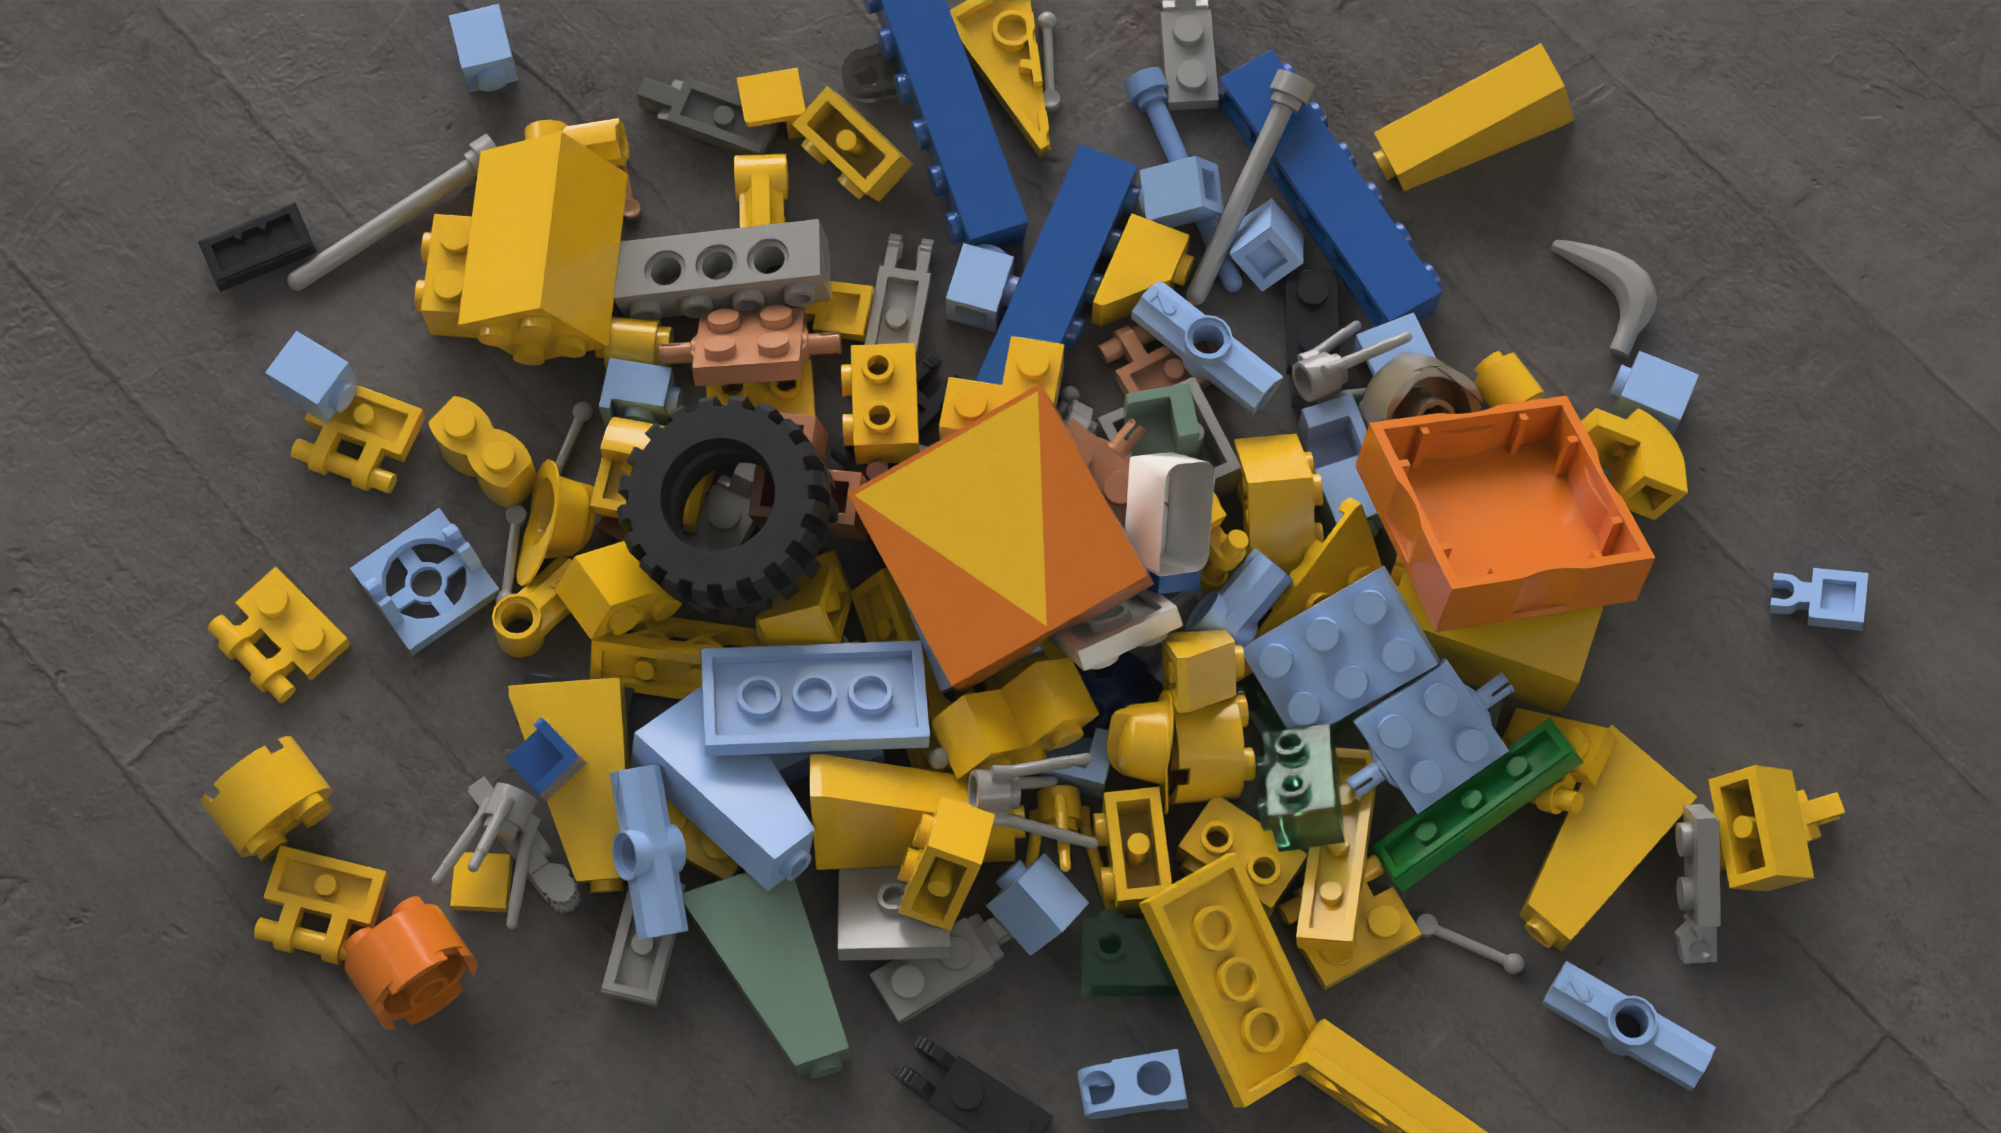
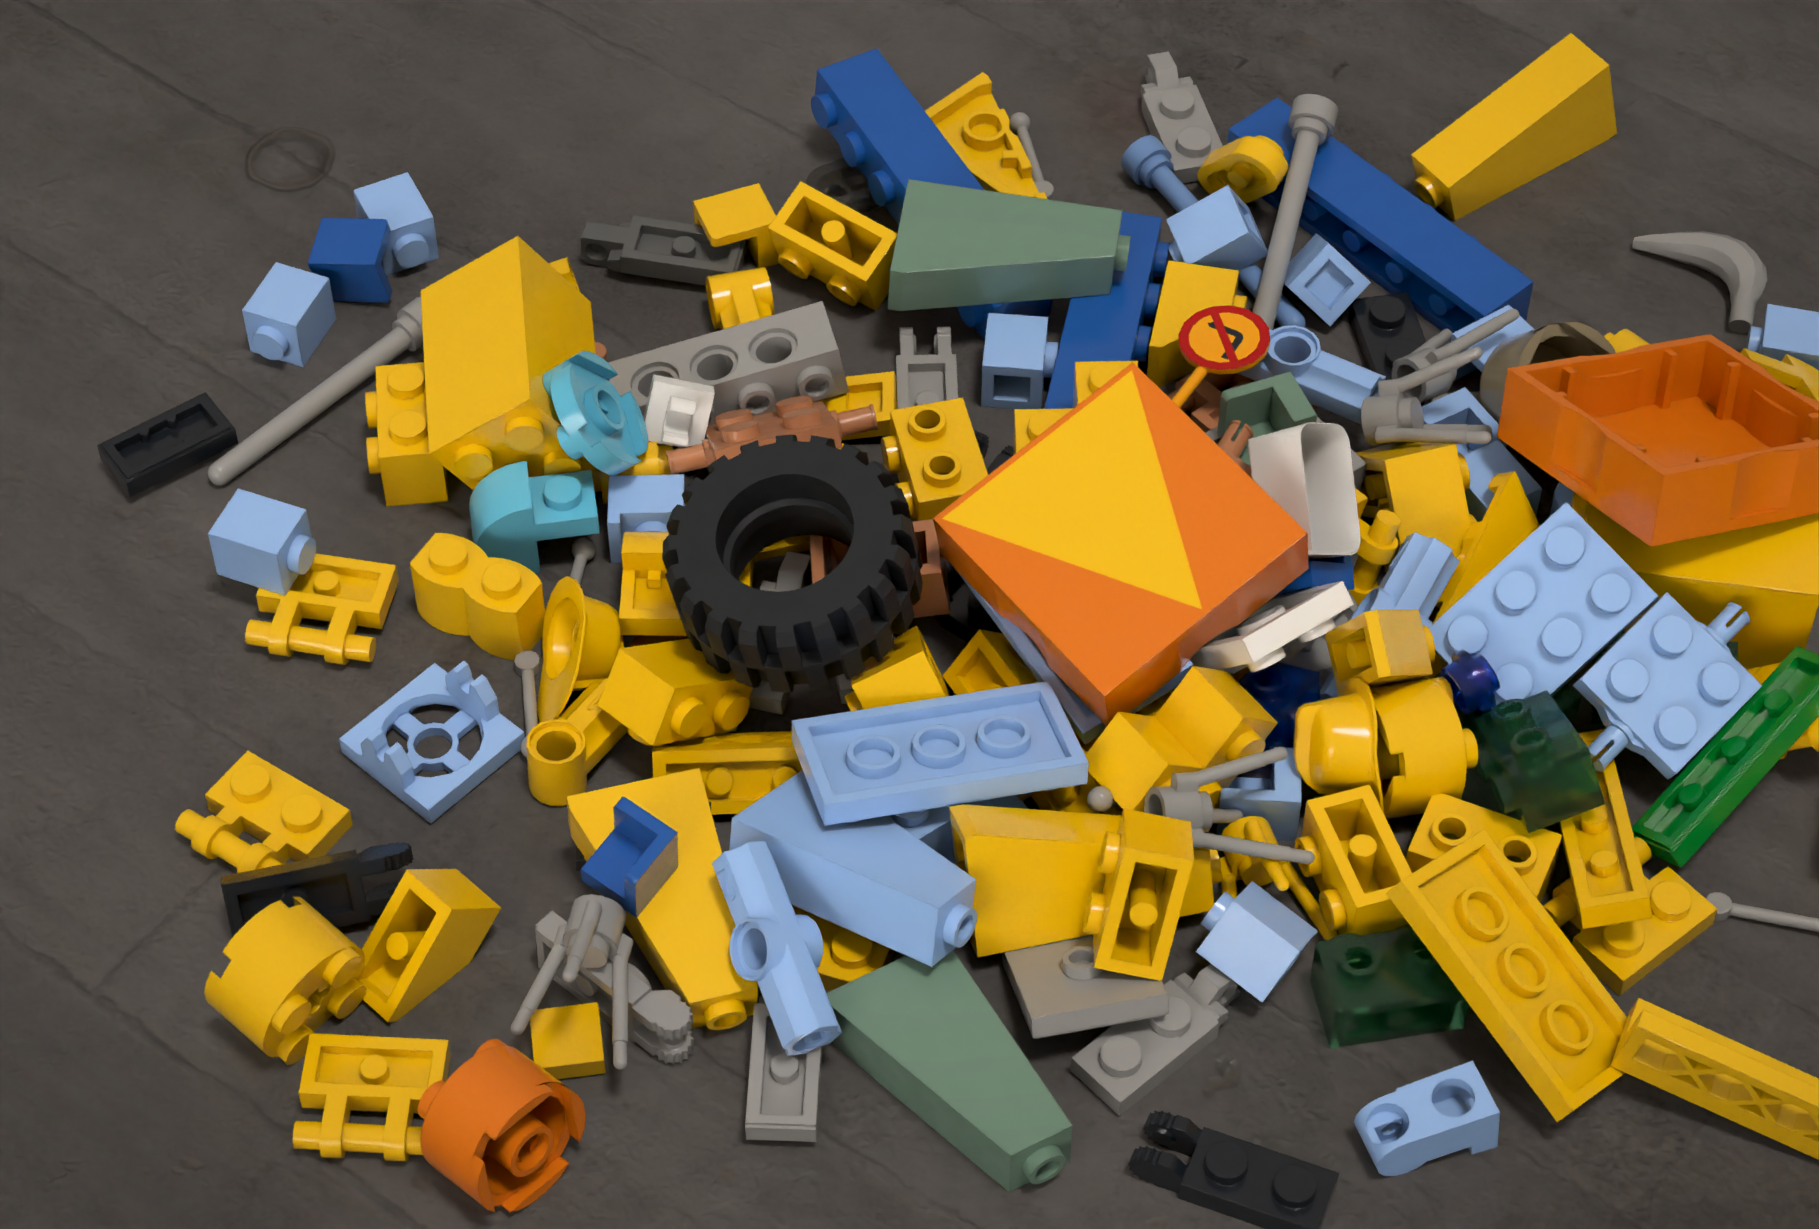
camera: 10 degrees left, 20 degrees down
(309, 715) = (327, 883): none -> black hinge
(377, 131) = (289, 314): none -> light blue brick
(383, 773) = (423, 938): none -> yellow slope
(435, 83) = (351, 257): none -> blue panel
(533, 381) = (518, 510): none -> medium azure brick
(583, 296) = (593, 414): none -> medium azure plate
(676, 308) = (677, 411): none -> white tile
(980, 188) = (1000, 248): none -> sand green slope
(1144, 323) = (1220, 343): none -> piece
(1223, 123) = (1247, 165): none -> yellow plate
(1266, 707) = (1471, 682): none -> clear blue plate
(1277, 422) = (1397, 419): none -> light grey plant

